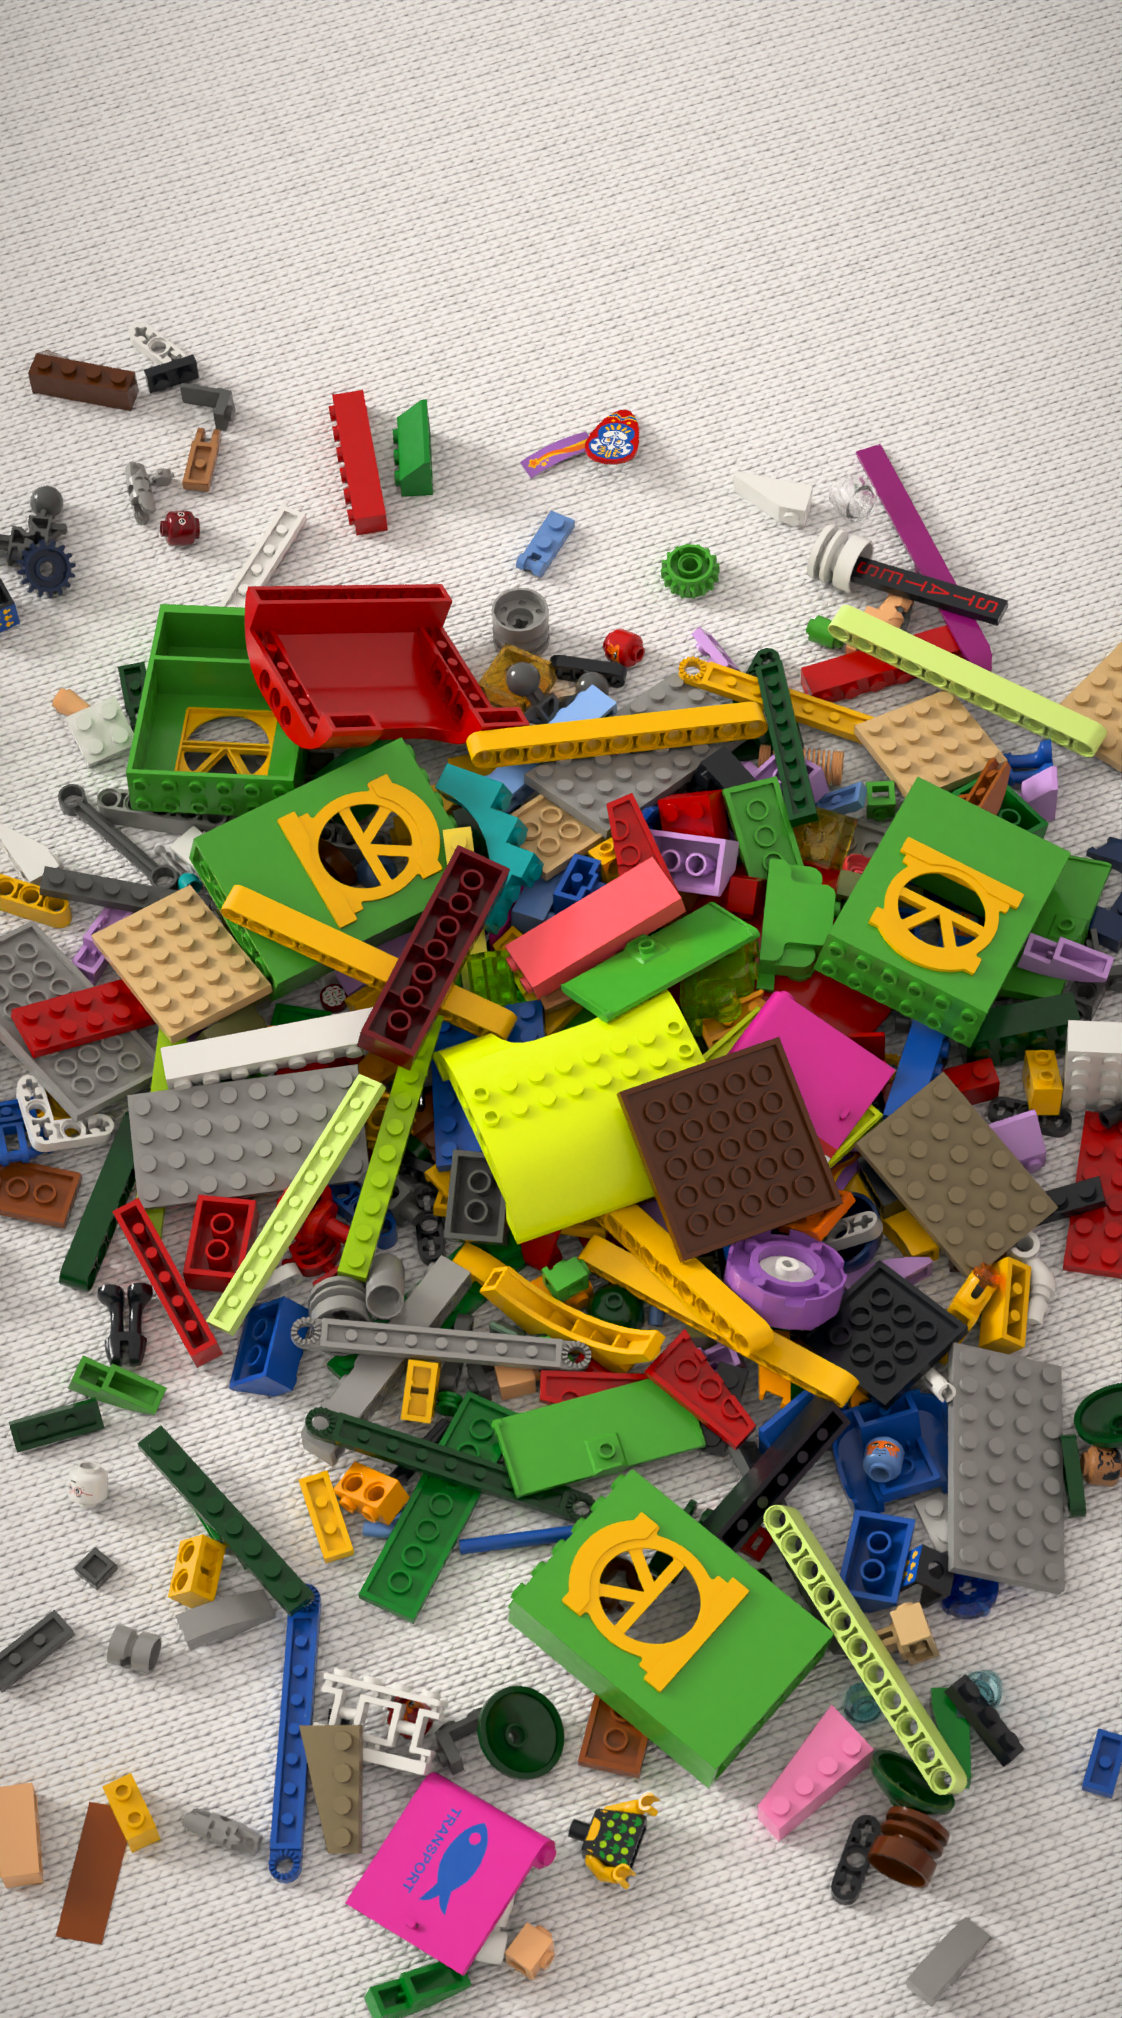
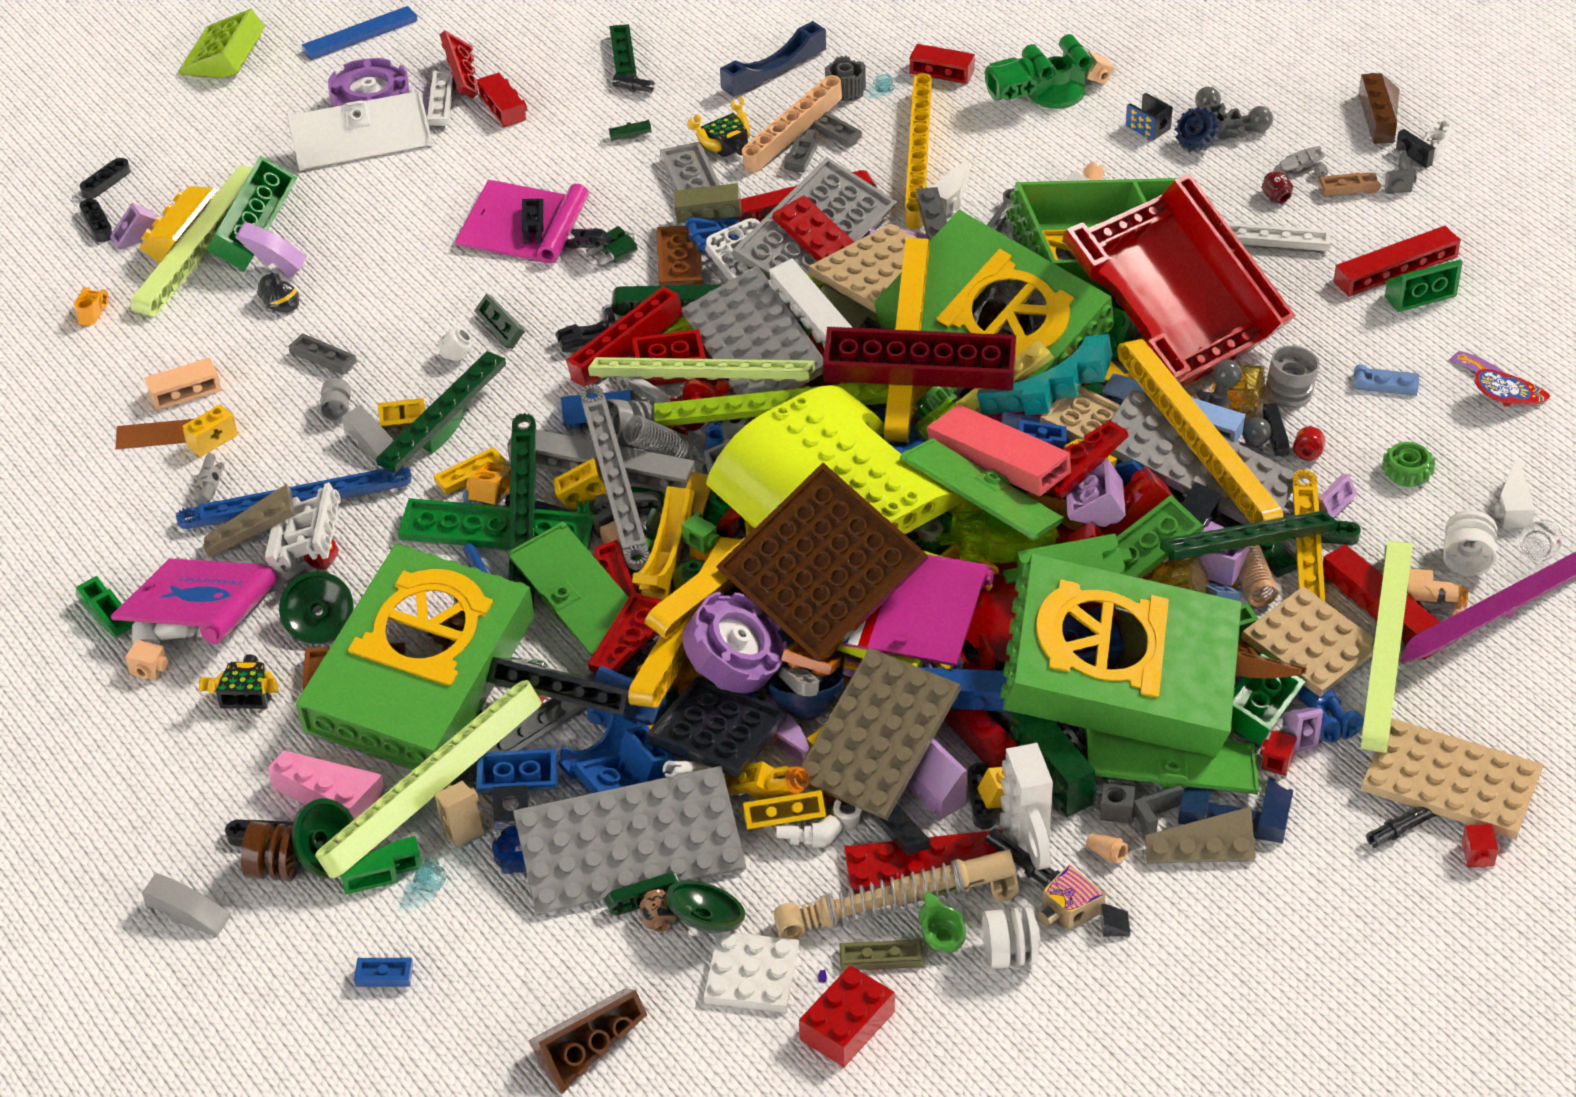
camera: 70 degrees right, 15 degrees down
(95, 1568) = (397, 371): dark grey tile -> none
(116, 1386) = (539, 340): bright green slope -> none
(883, 1459) = (607, 755): medium blue head -> none
(929, 591) = (1467, 601): black tile -> none
(984, 1720) = (396, 877): black plate -> none
(1064, 829) = (1278, 752): none -> red brick
(1064, 960) = (1130, 762): lavender slope -> none

